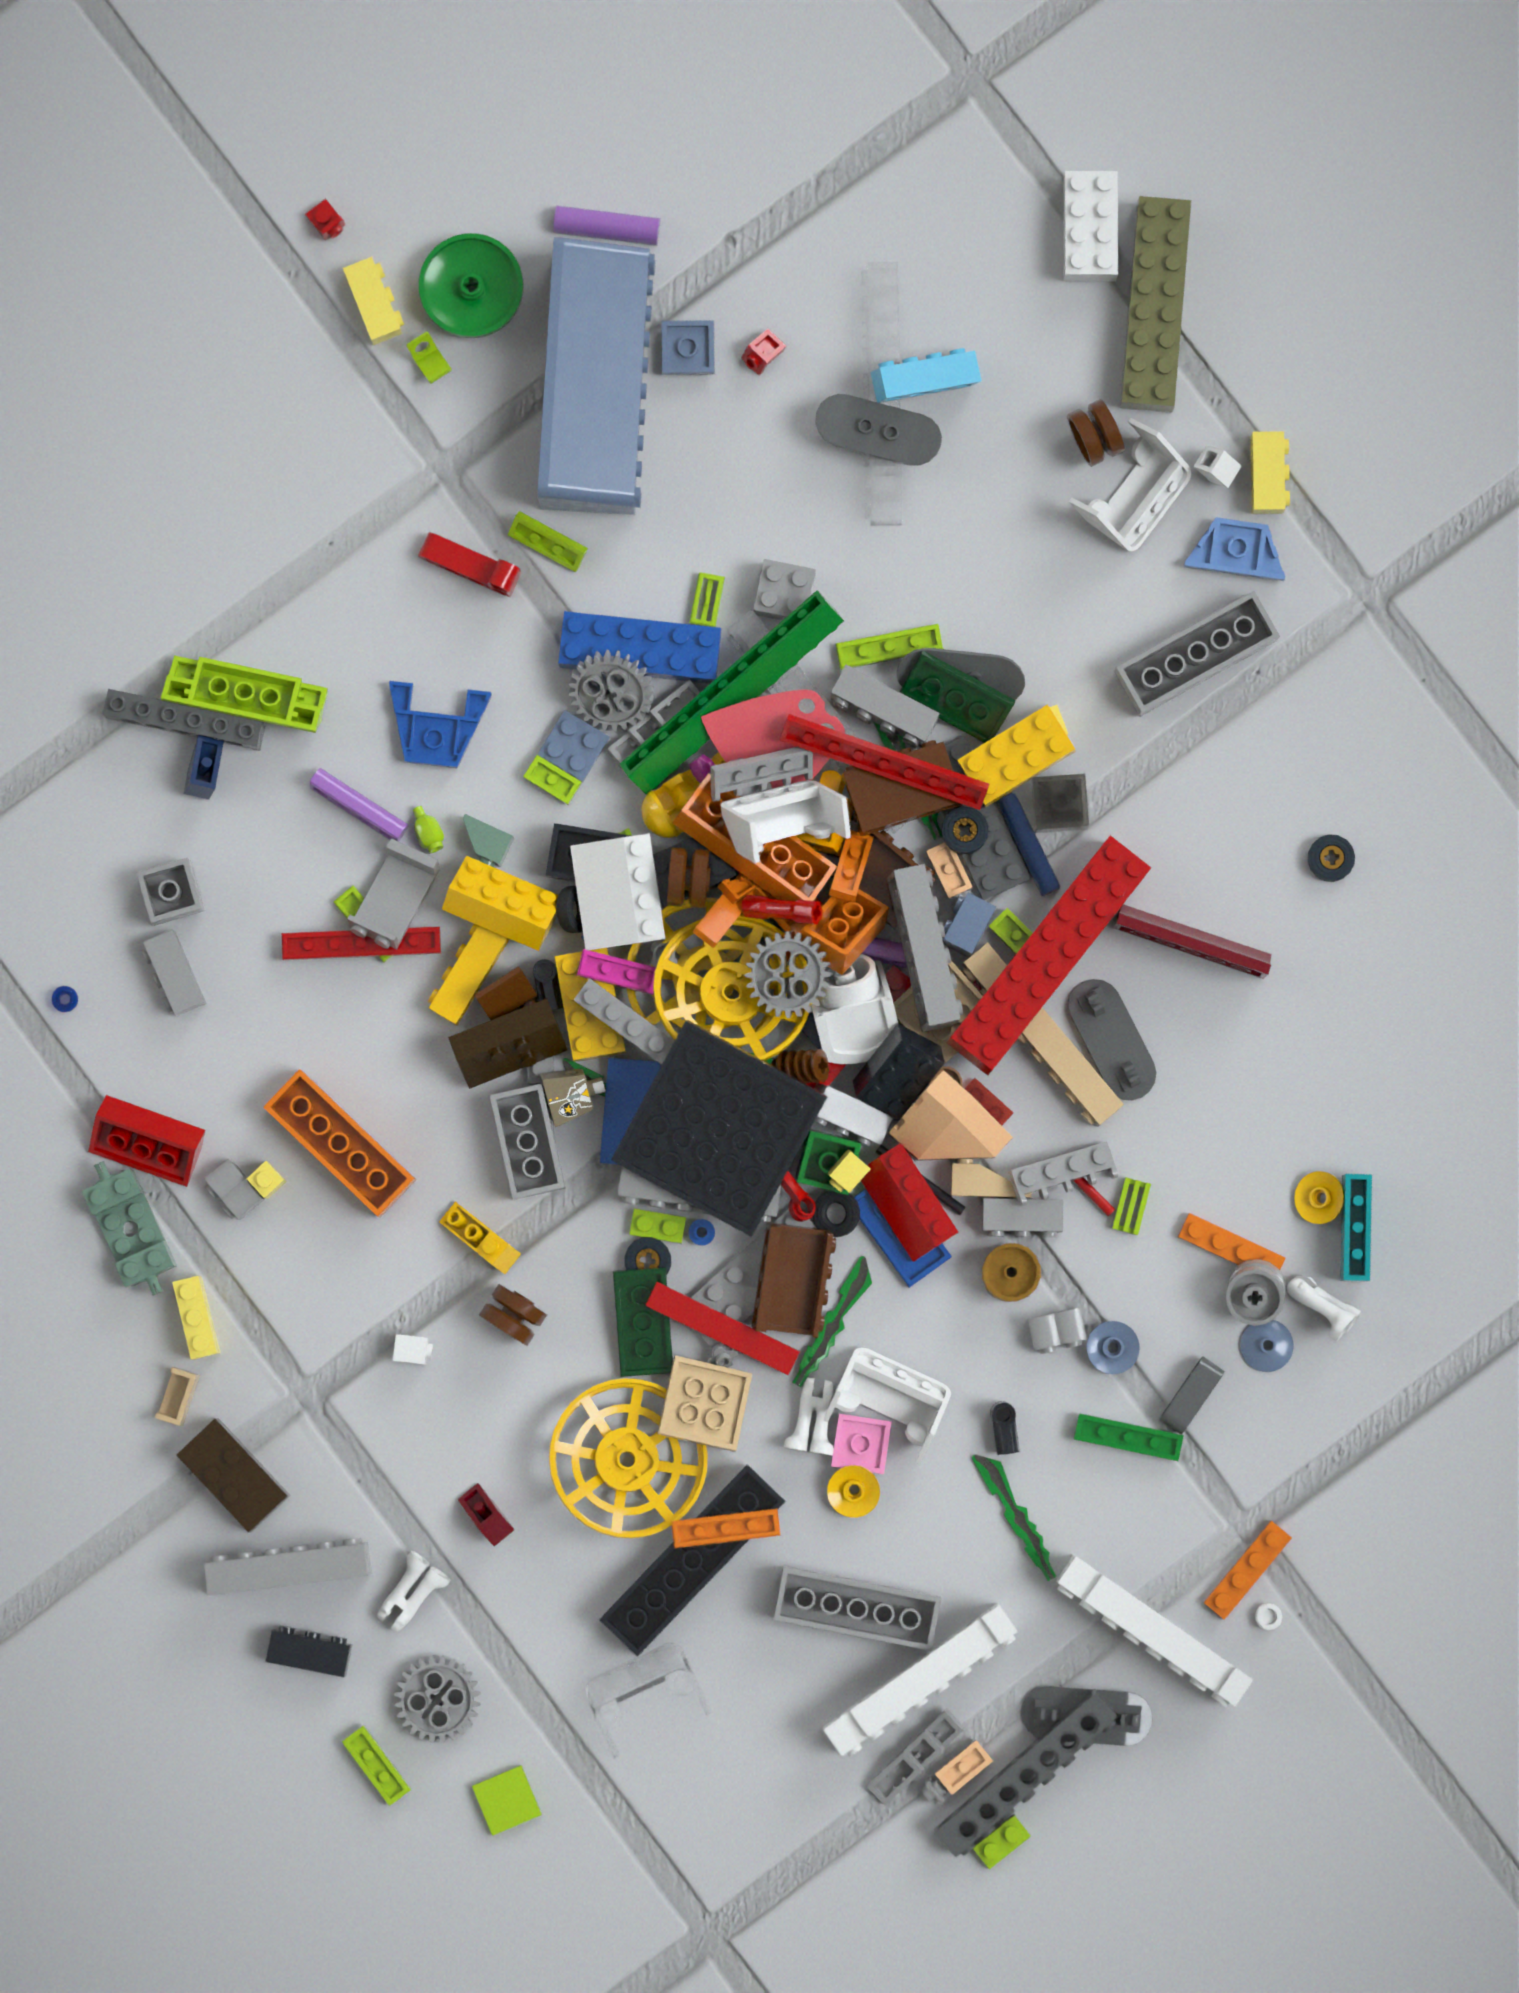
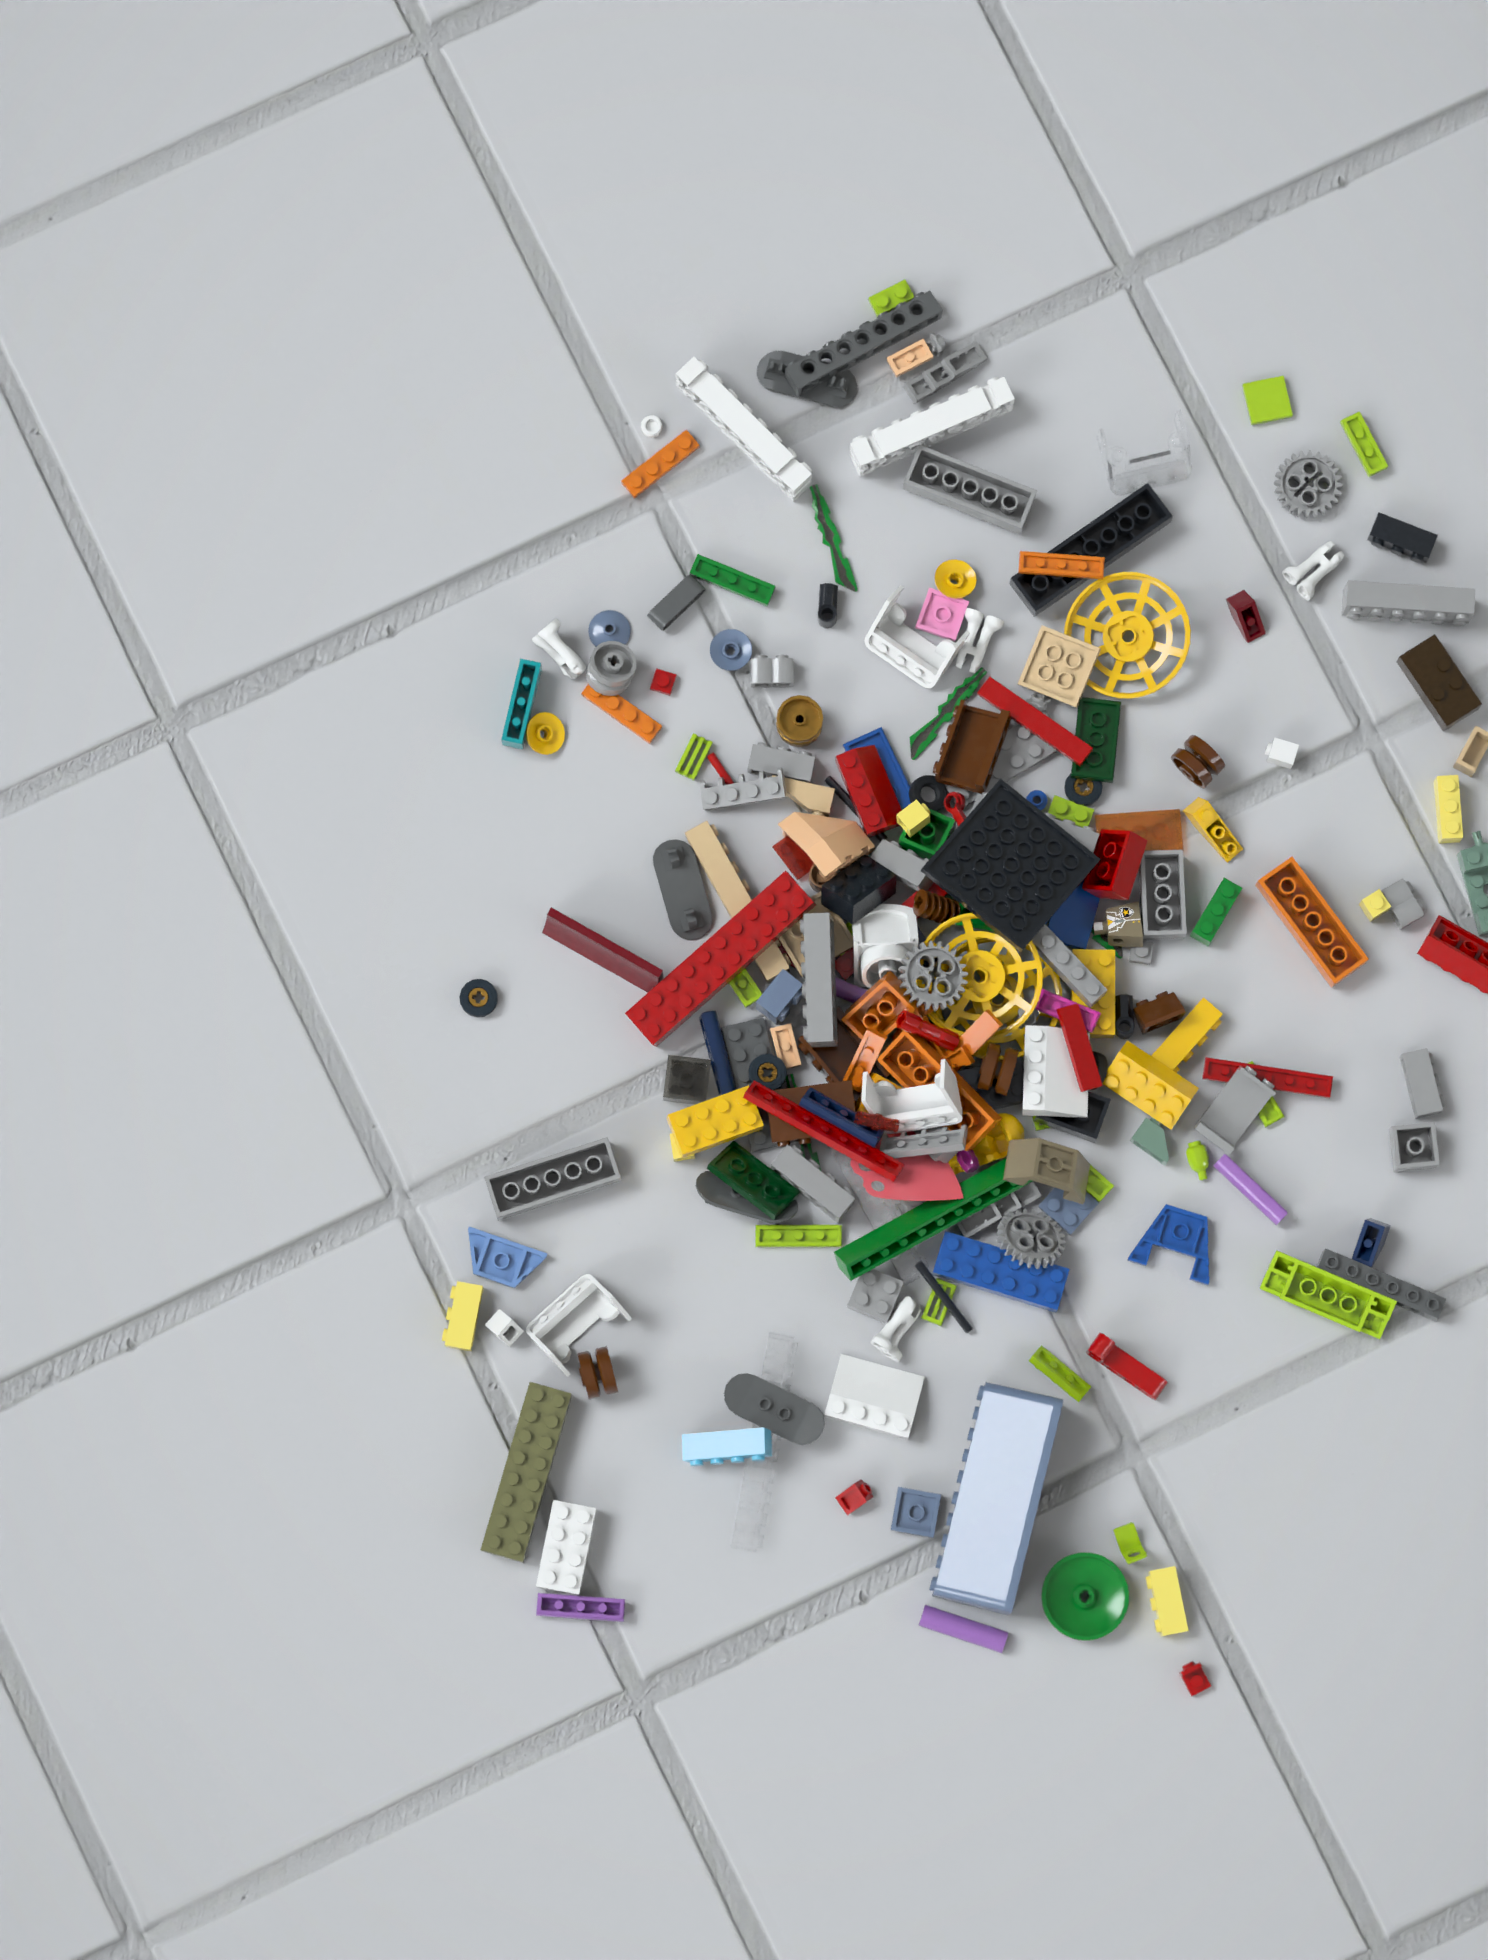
camera: 175 degrees left, 5 degrees down
(458, 1134) = (1216, 911): none -> green brick
(507, 1043) = (1164, 972): dark brown brick -> none
(569, 1216) = (1159, 827): none -> clear orange tile
(587, 1164) = (1119, 864): none -> red brick
(594, 925) = (1079, 1047): none -> red tile
(606, 774) = (1048, 1164): none -> dark tan slope
(702, 603) = (943, 1297): none -> black bar
(758, 542) = (902, 1319): none -> white piece
(762, 472) = (874, 1396): none -> white slope
(822, 781) = (876, 1121): none -> clear red pin
(865, 782) = (839, 1116): none -> dark blue brick
(1058, 160) = (580, 1607): none -> medium lavender brick
(1187, 1292) = (663, 682): none -> red plate

